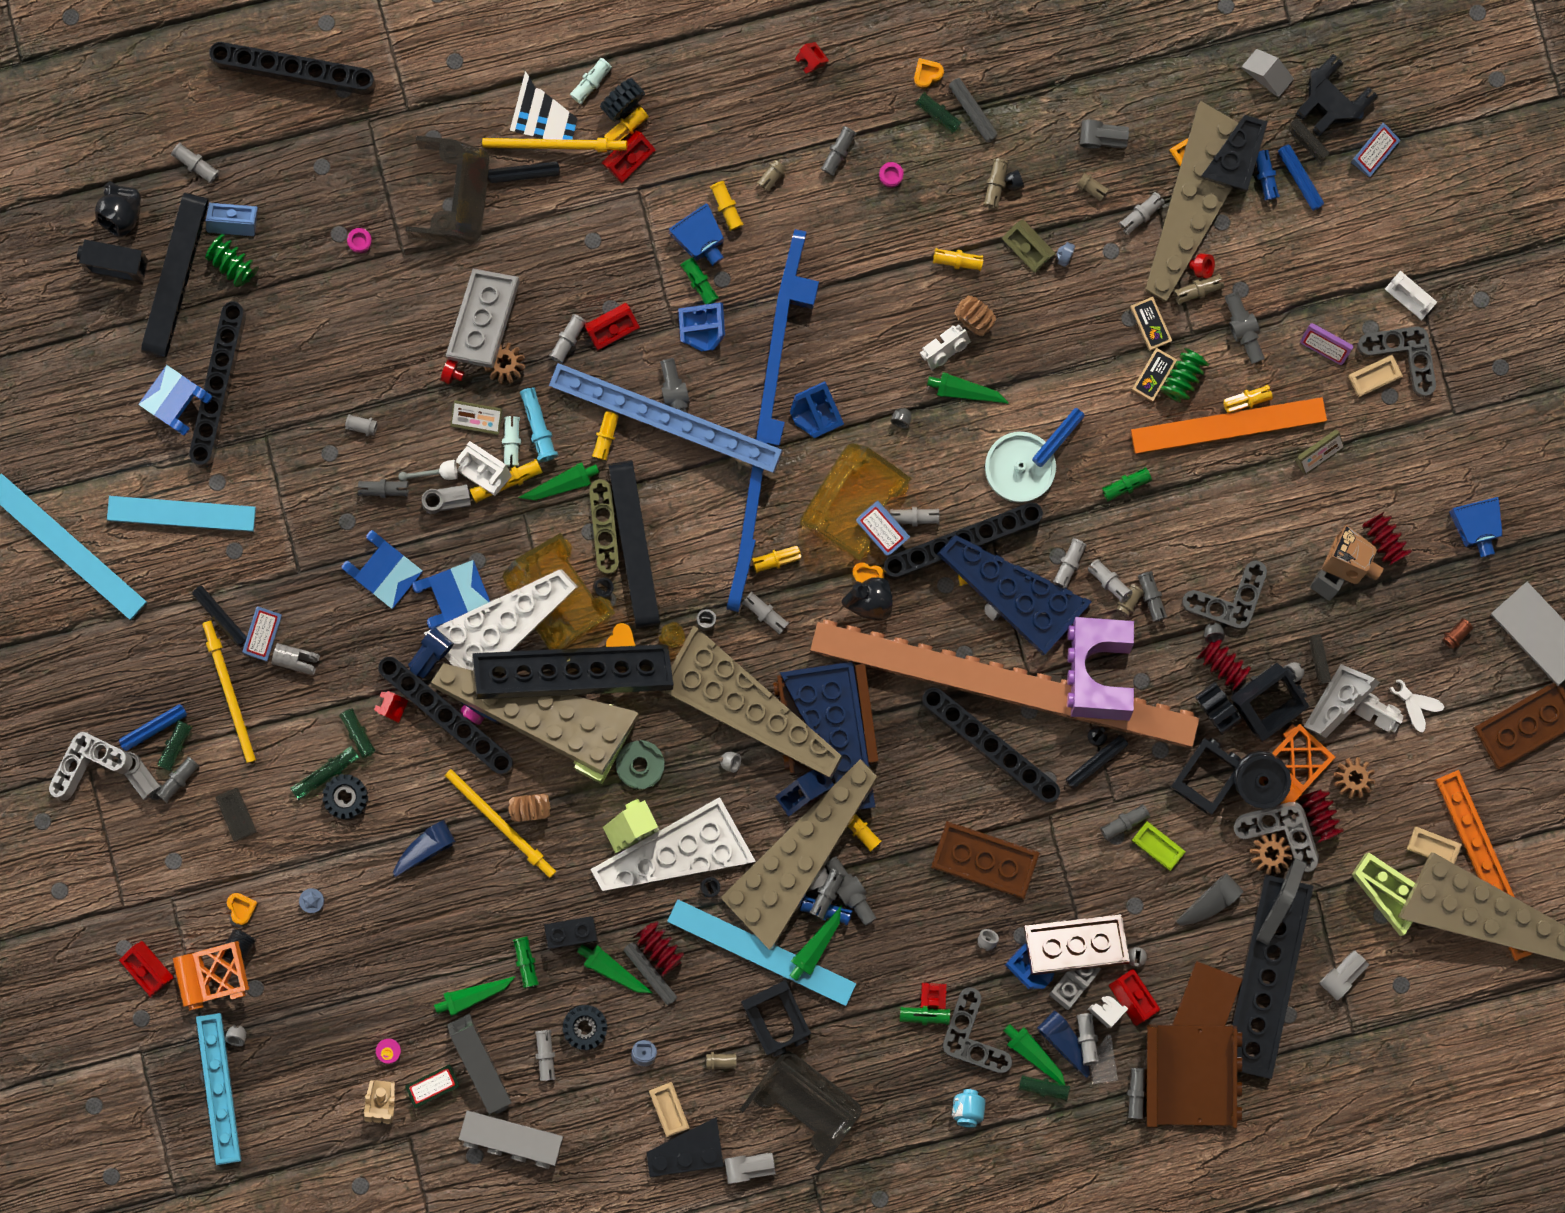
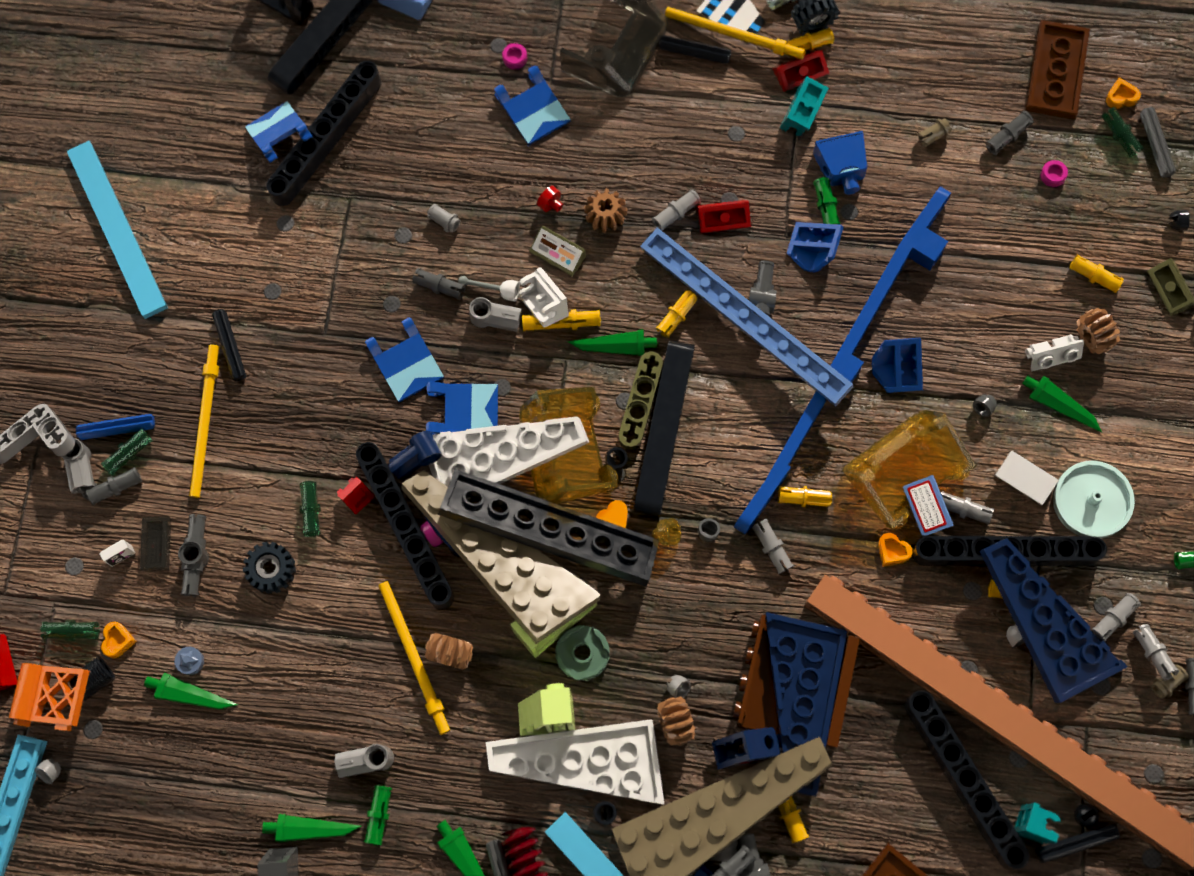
camera: 30 degrees right, 10 degrees down
(181, 513) = (238, 238): medium azure tile -> none
(198, 915) = (70, 630): none -> clear green pin
(209, 835) = (117, 553): none -> white tile
(229, 262) = (387, 30): green piece -> none
(262, 633) = (260, 376): slope -> none
(279, 824) = (192, 569): none -> dark grey pin
(289, 658) = (278, 410): light grey hinge -> none
(317, 928) = (179, 691): none -> green bar
(324, 773) = (269, 533): clear green pin -> none
(388, 1051) = (195, 852): dark pink tile -> none
(400, 288) = (535, 110): none -> blue flag
(427, 845) = (331, 650): dark blue piece -> none
(482, 318) = (601, 160): light grey tile -> none
(493, 925) = (361, 761): none -> light grey piece
(511, 441) = (582, 285): light aqua pin -> none
(541, 435) = (613, 290): medium azure pin -> none
(571, 932) = (437, 802): black brick -> none
(645, 195) = (804, 106): none -> teal hinge
(725, 691) = (700, 610): dark tan wing -> none
(726, 205) = (879, 144): yellow pin -> none
(739, 791) = (676, 721): none -> medium nougat gear
(813, 55) = (1015, 41): red tile -> none
(861, 69) = (1057, 69): none -> reddish brown tile
(870, 599) = (889, 572): black piece -> none
(957, 471) = (1026, 477): none -> white hinge
(995, 183) = (1159, 216): dark tan pin -> none
(1054, 763) = (1032, 824): none -> teal hinge
(1058, 437) = (1145, 483): blue axle -> none
(1088, 697) = (1095, 764): arch -> none

